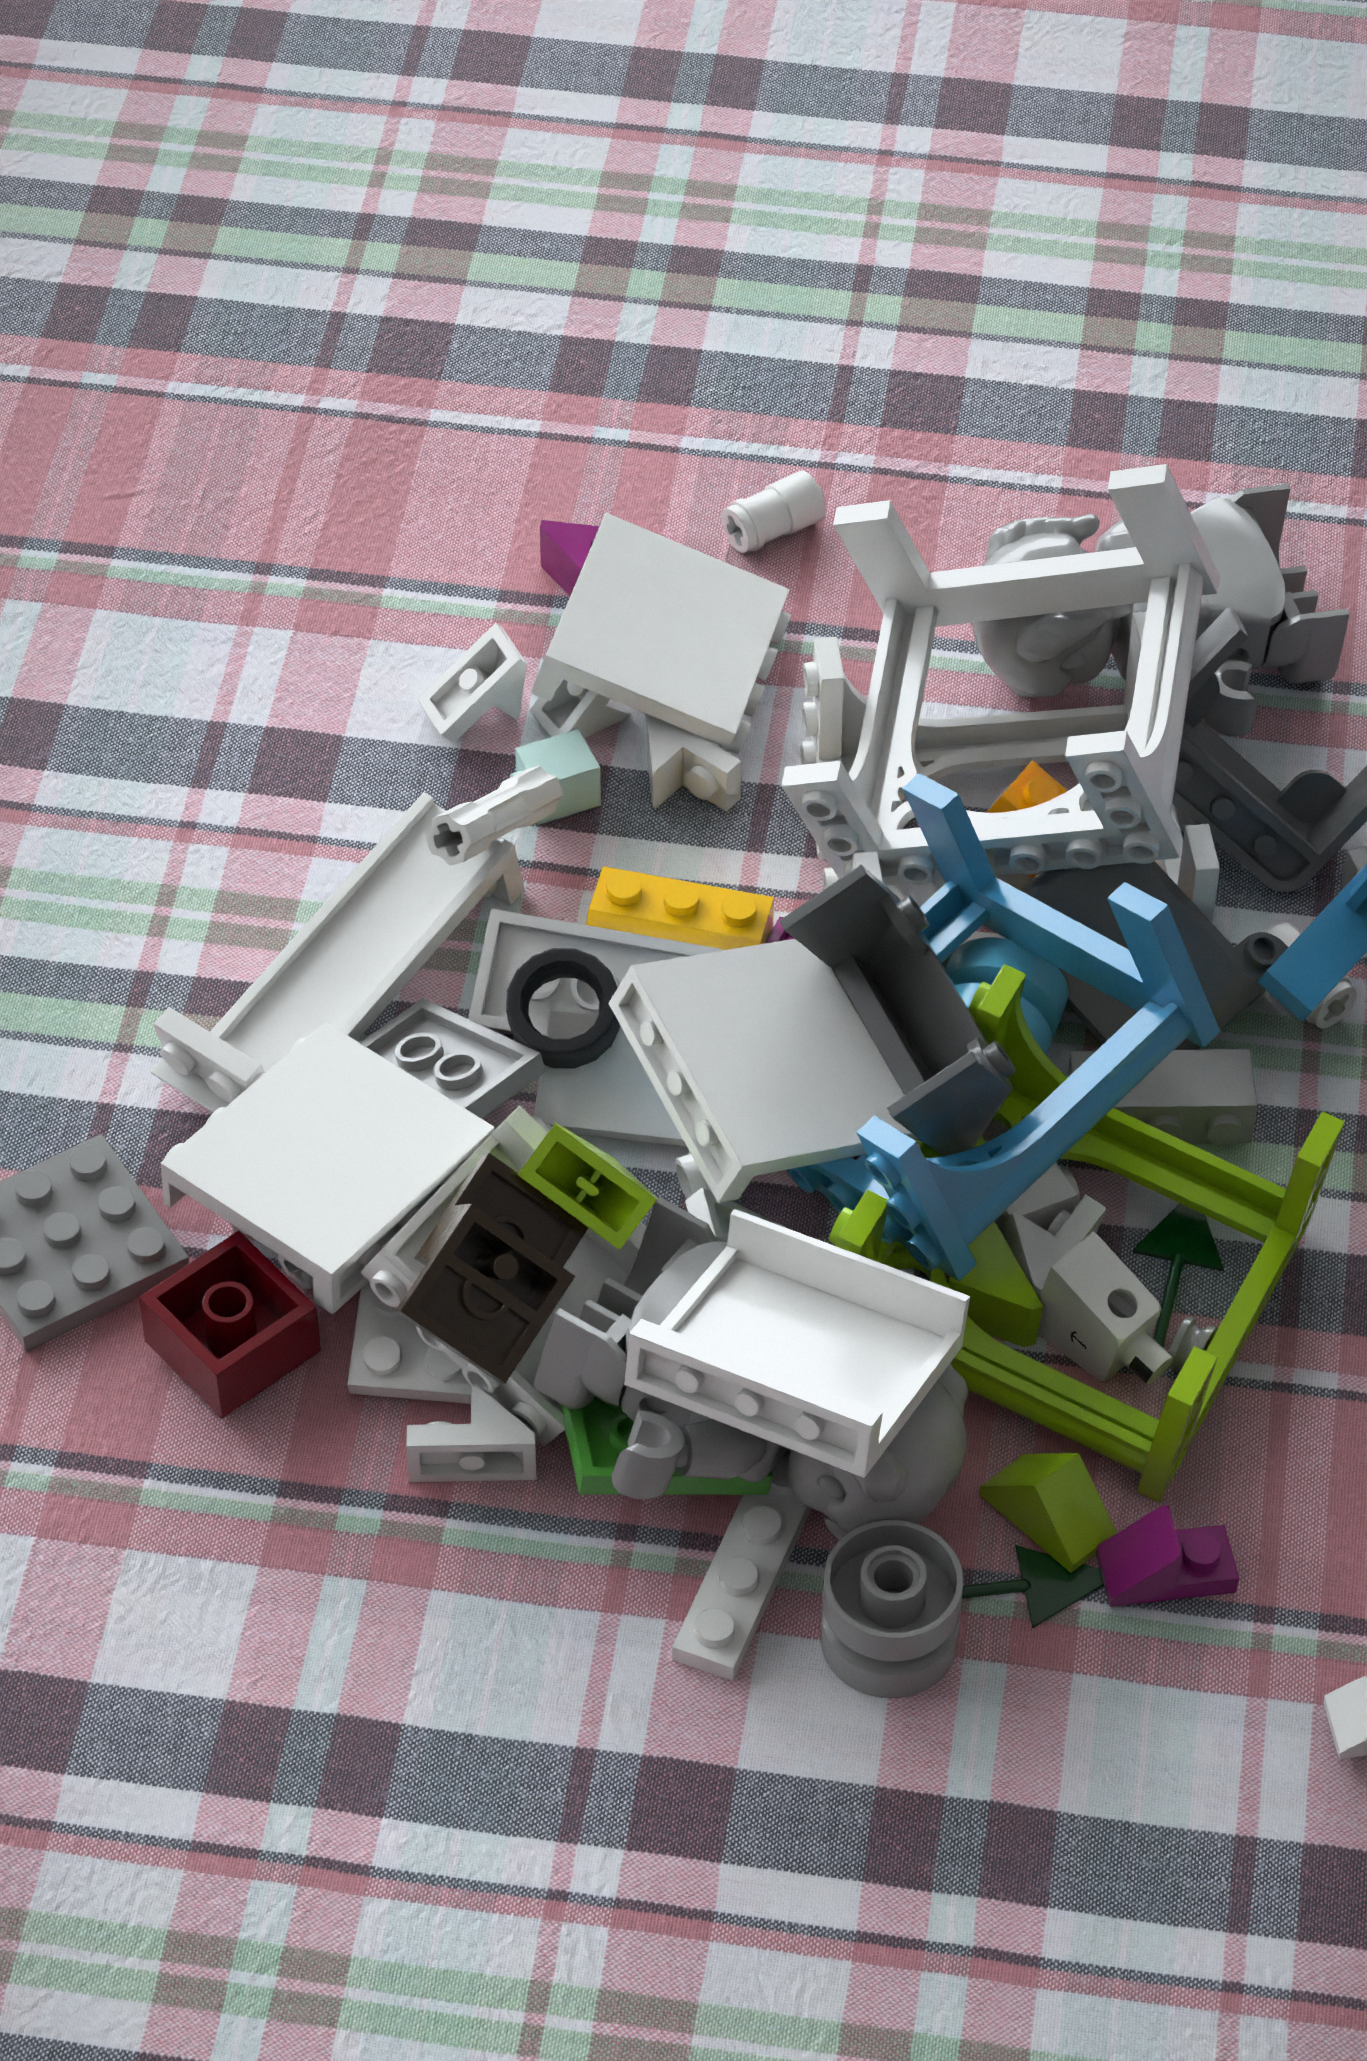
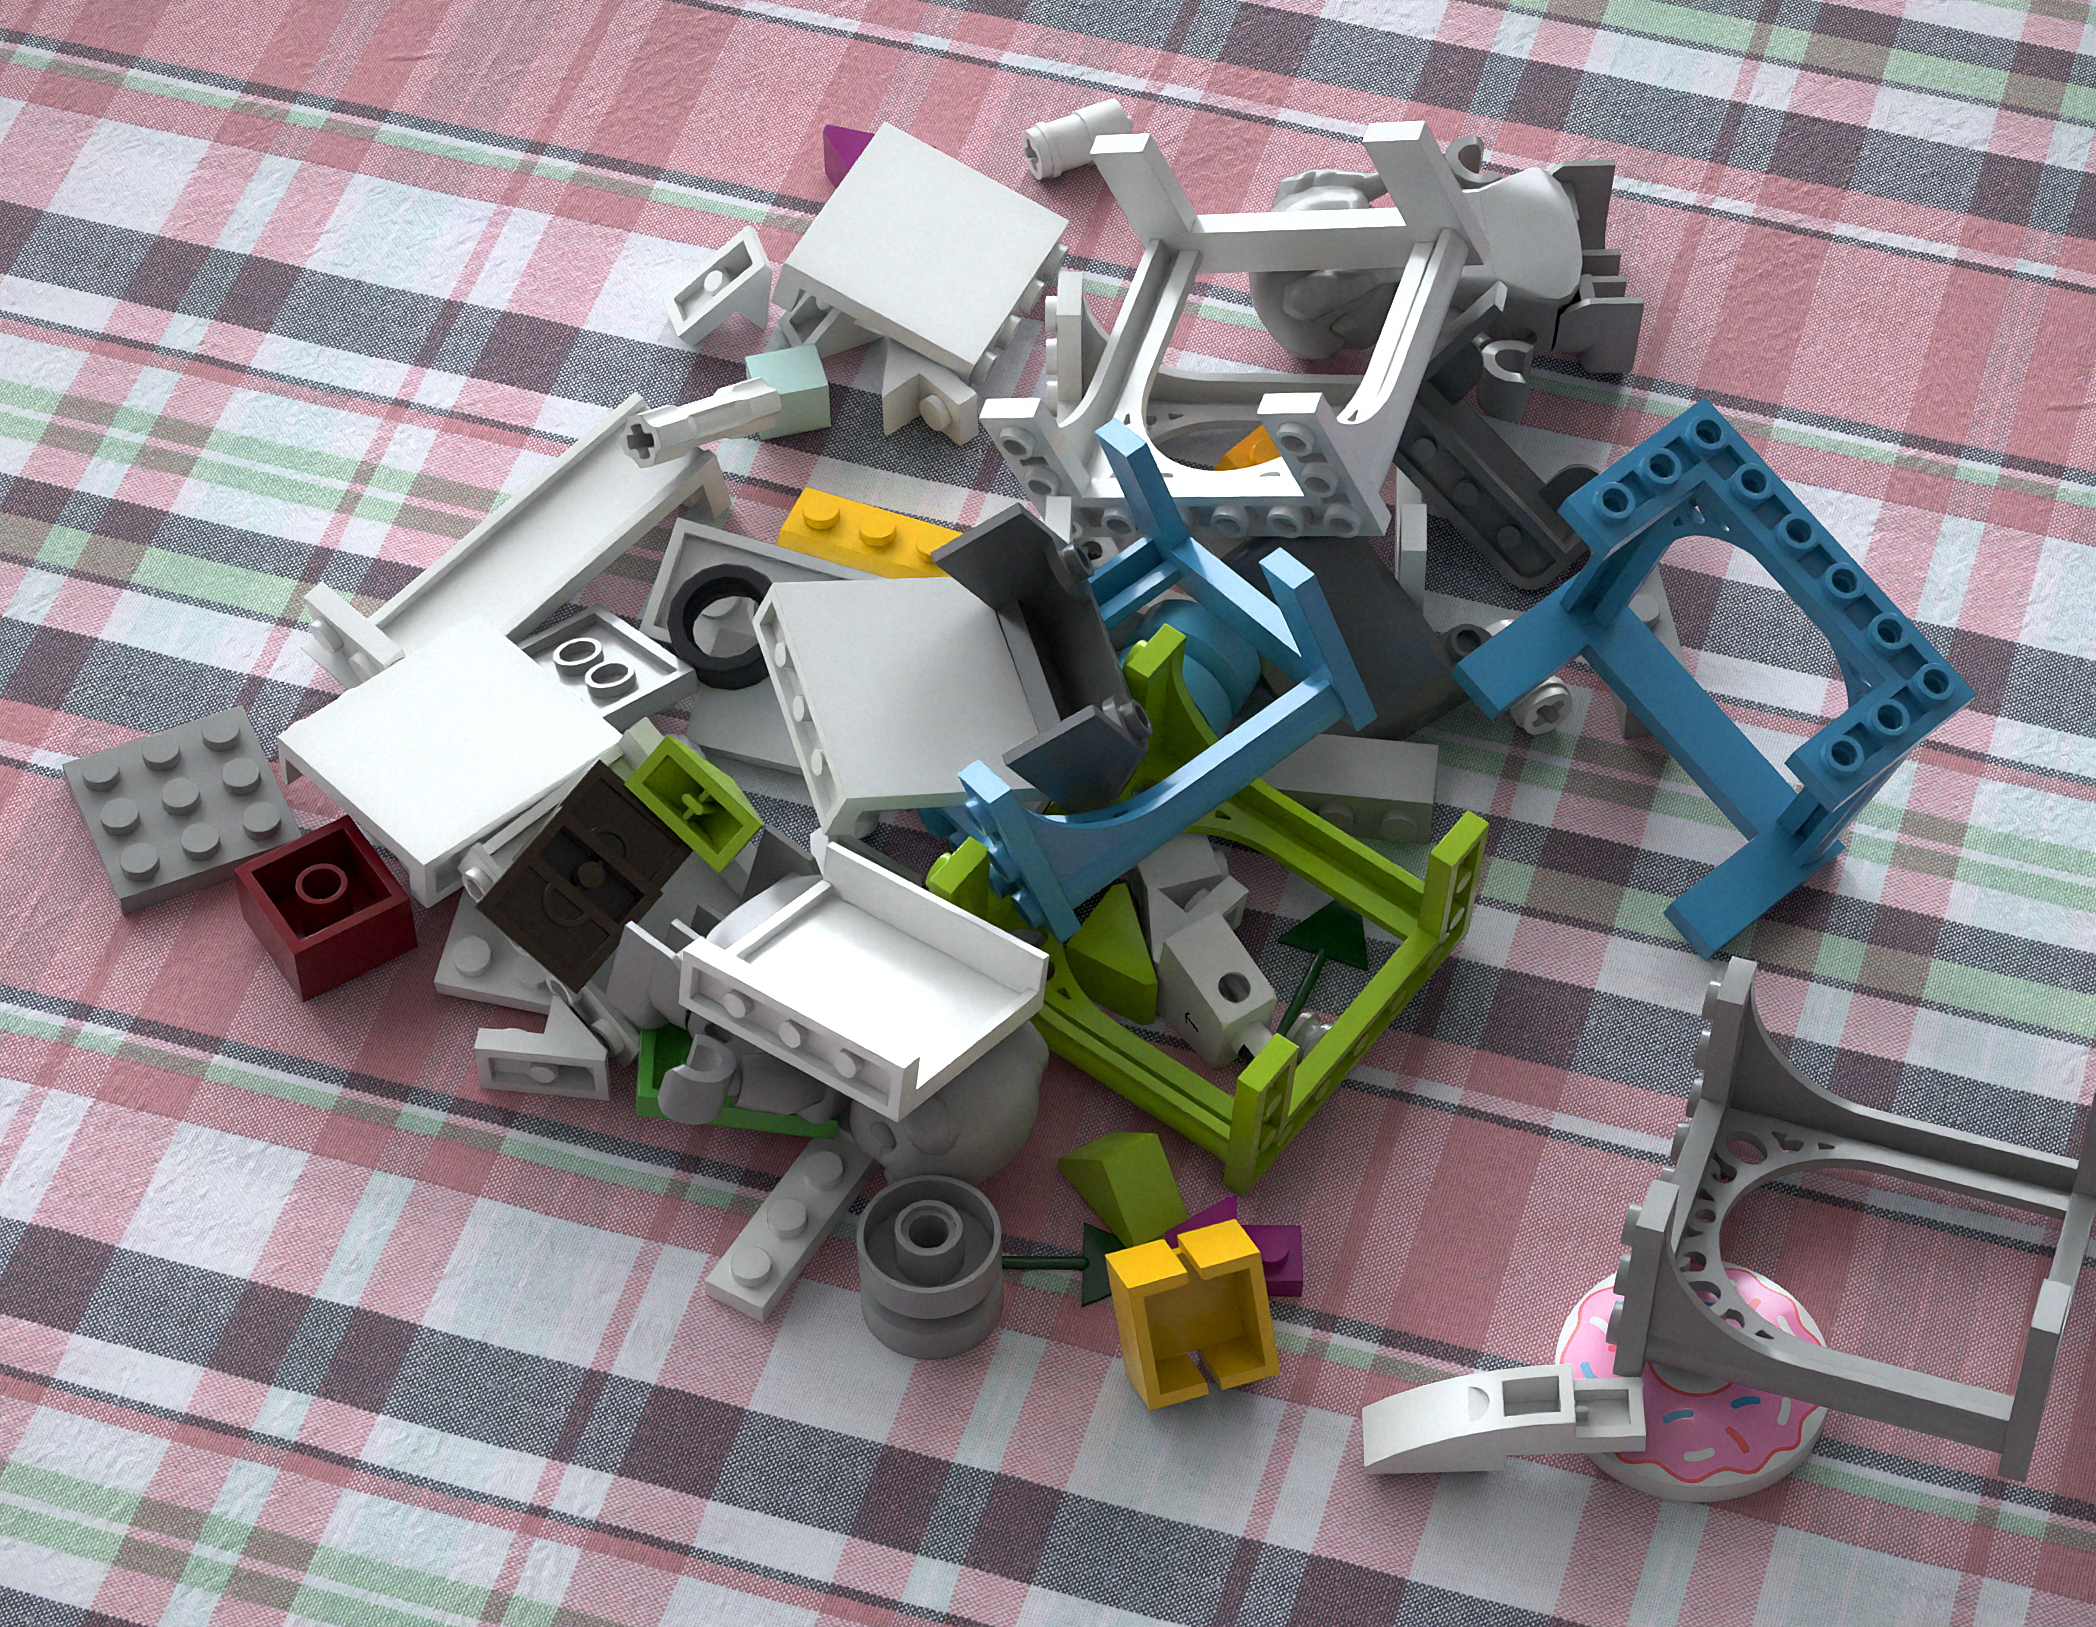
camera: 10 degrees right, 0 degrees up
(1156, 1608) = (1191, 1299): none -> yellow piece

